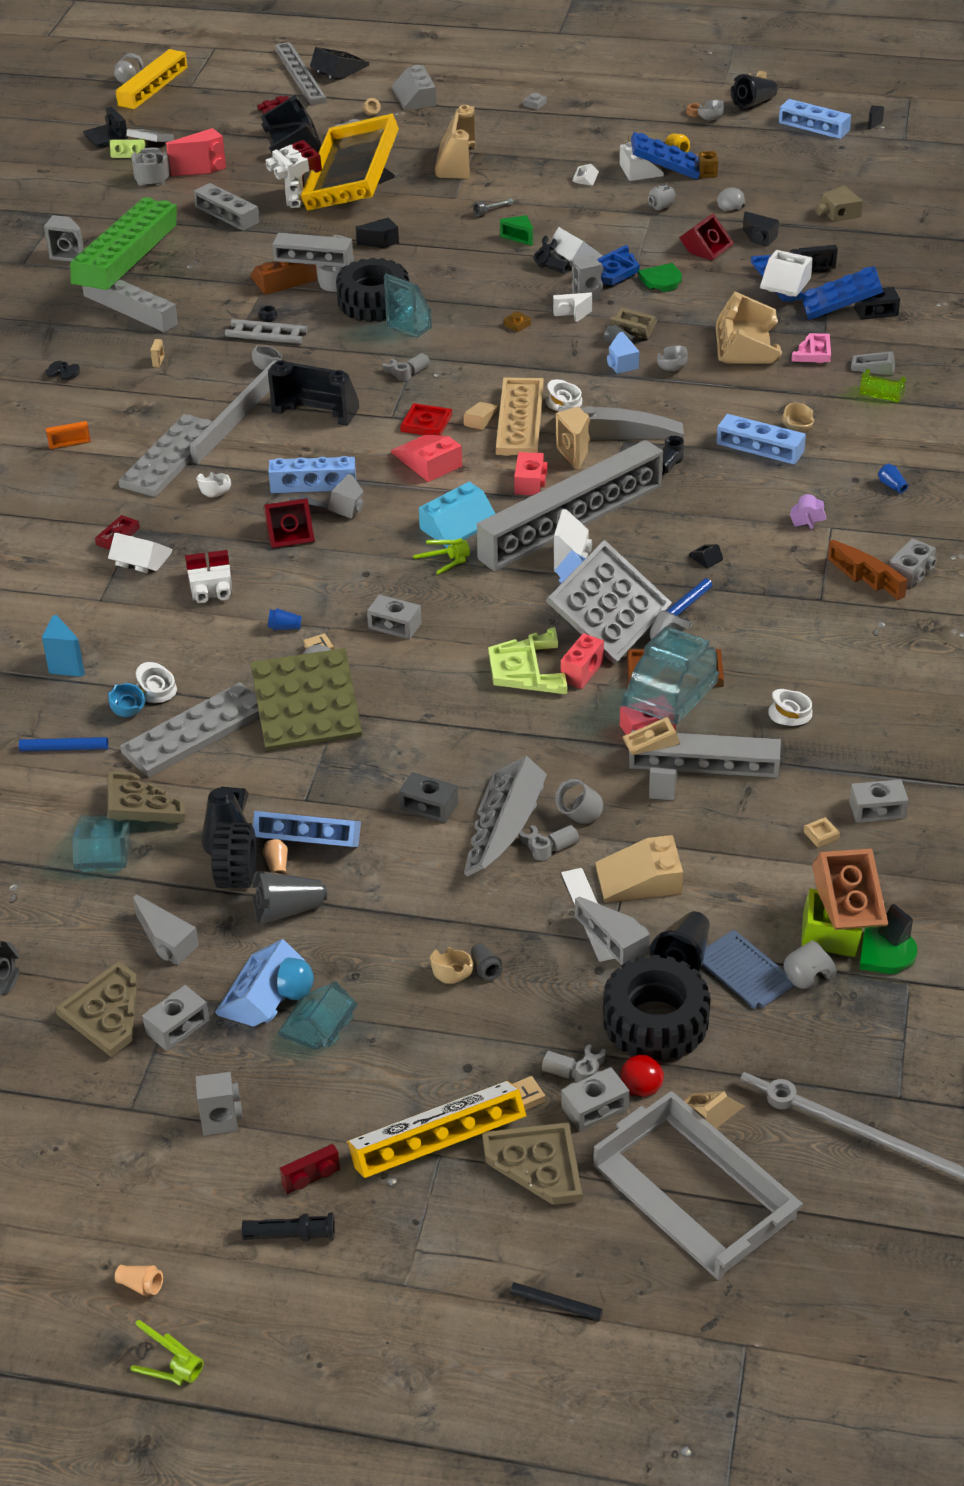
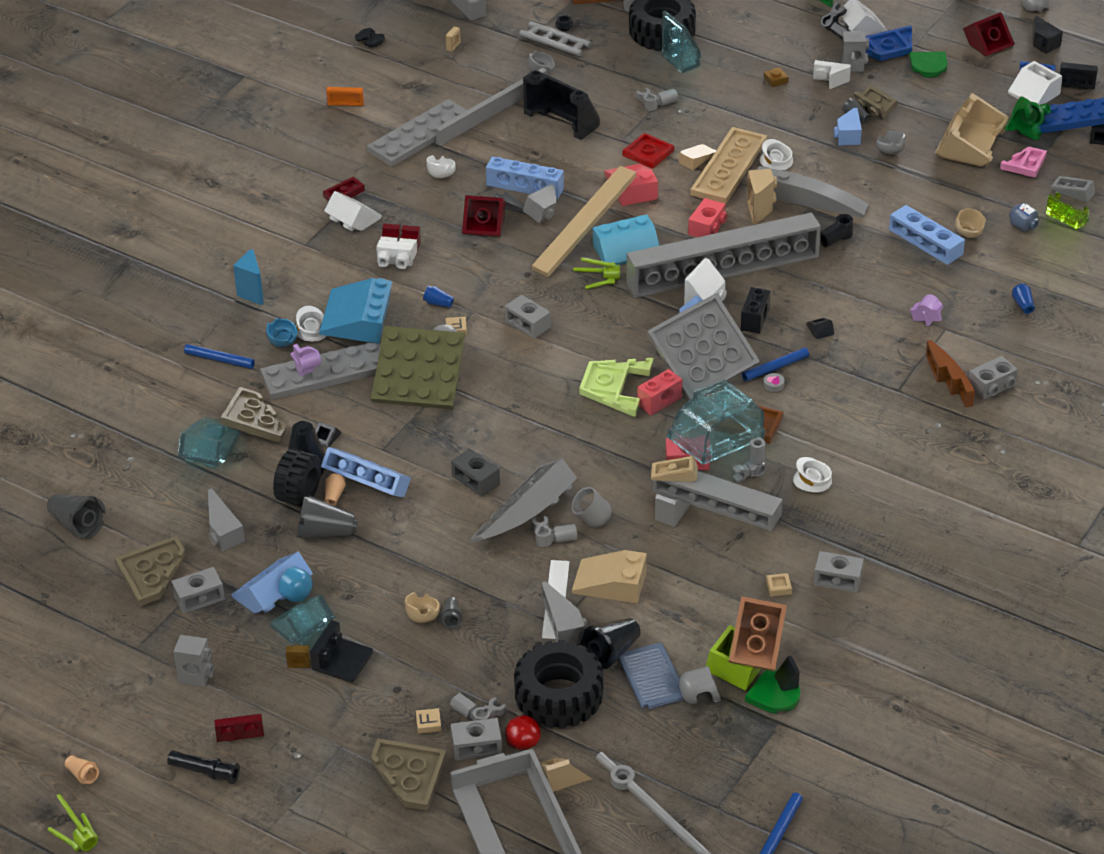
camera: 20 degrees right, 0 degrees up
(174, 721) = (305, 359): none -> lavender piece
(204, 654) = (357, 310): none -> dark azure slope
(336, 1062) = (298, 656): none -> pearl gold plate
(385, 1048) = (337, 655): none -> black bracket
(403, 504) = (584, 221): none -> tan tile
(436, 1129) = (344, 725): yellow brick -> none
(634, 548) = (755, 310): none -> black brick
(670, 620) = (749, 379): light grey helmet -> none
(697, 619) = (773, 382): none -> light grey tile
(726, 712) = (755, 464): none -> light grey bar
(793, 306) = (1027, 118): none -> green piece
(846, 401) = (1024, 217): none -> sand blue head

